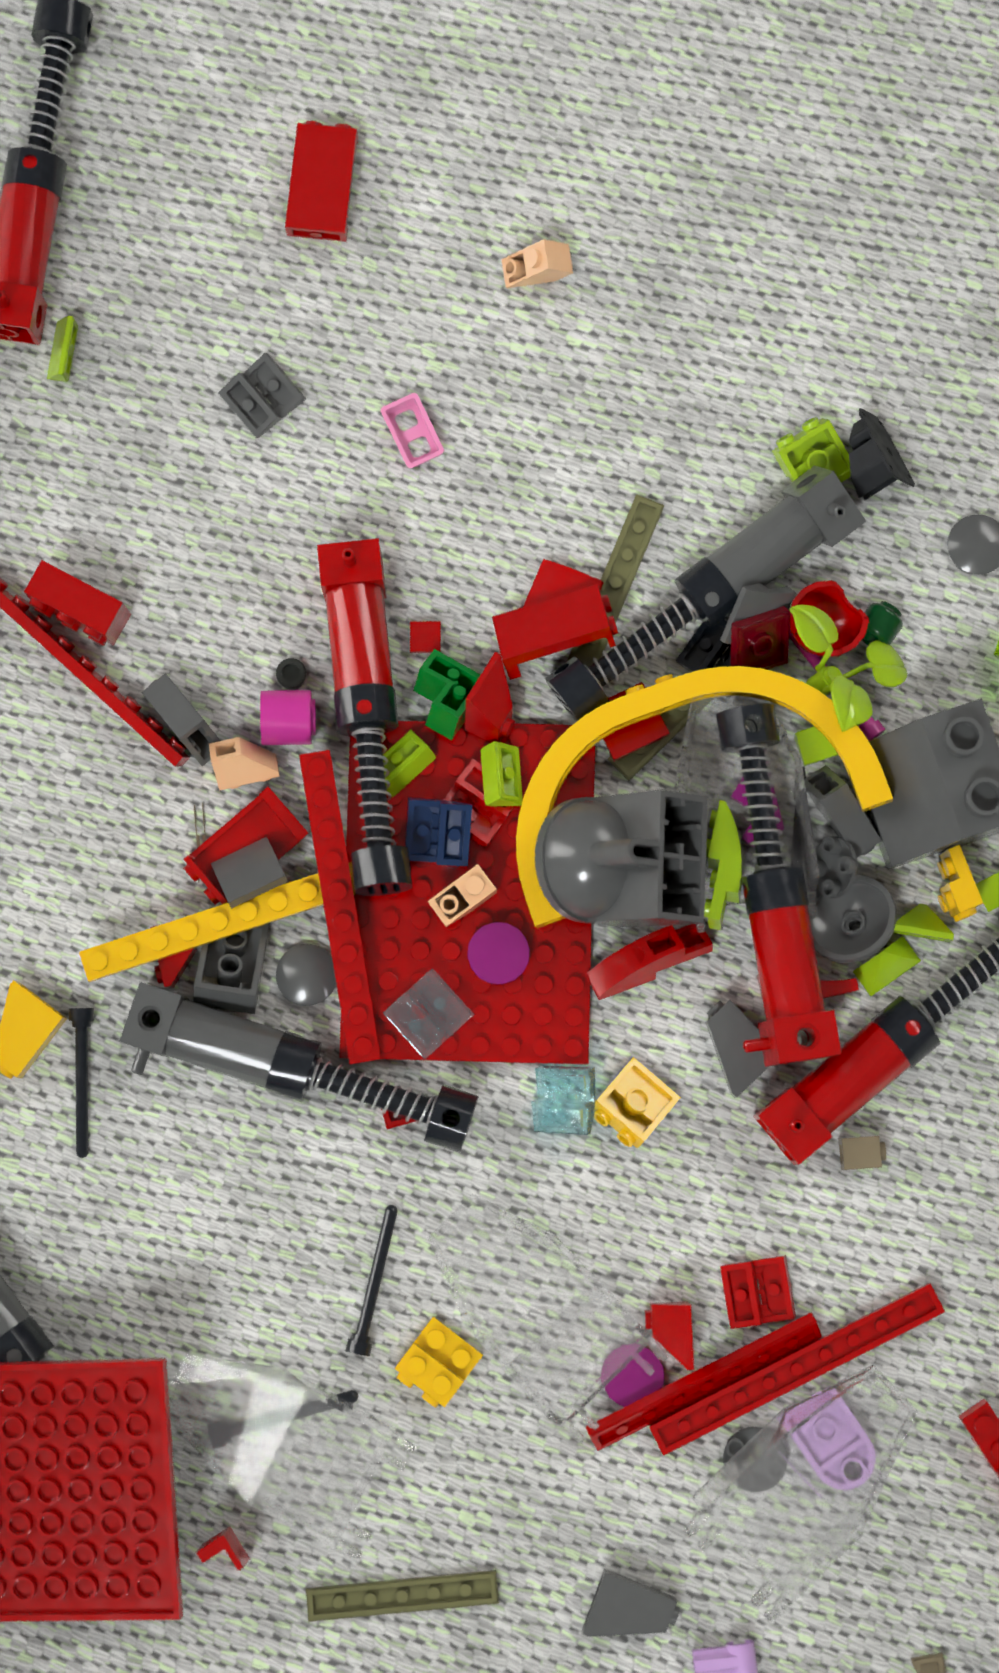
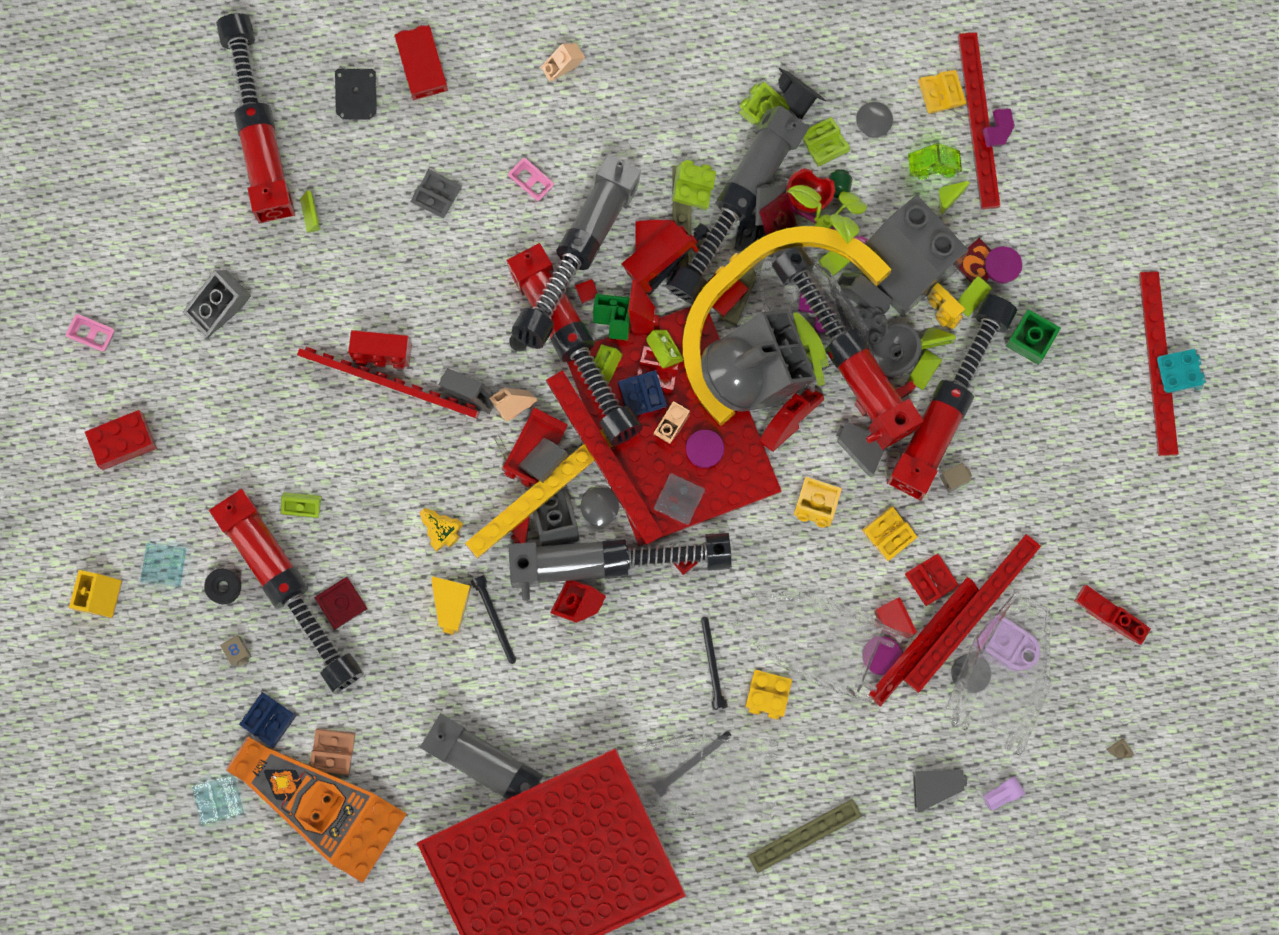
camera: 30 degrees left, 5 degrees down
(58, 912) = (440, 529): none -> yellow rock
(197, 211) = (355, 105): none -> black piece
(212, 1107) = (577, 602): none -> red slope
(224, 1540) = (684, 852): red panel -> none
(287, 717) = (528, 365): dark pink piece -> none
(527, 498) = (613, 190): none -> piece
(564, 1100) = (777, 515): clear light blue slope -> none
(632, 618) = (700, 233): none -> black piece
(654, 537) = (693, 184): none -> lime plate
(727, 1209) = (896, 539): none -> yellow slope
(886, 535) = (821, 134): none -> lime slope

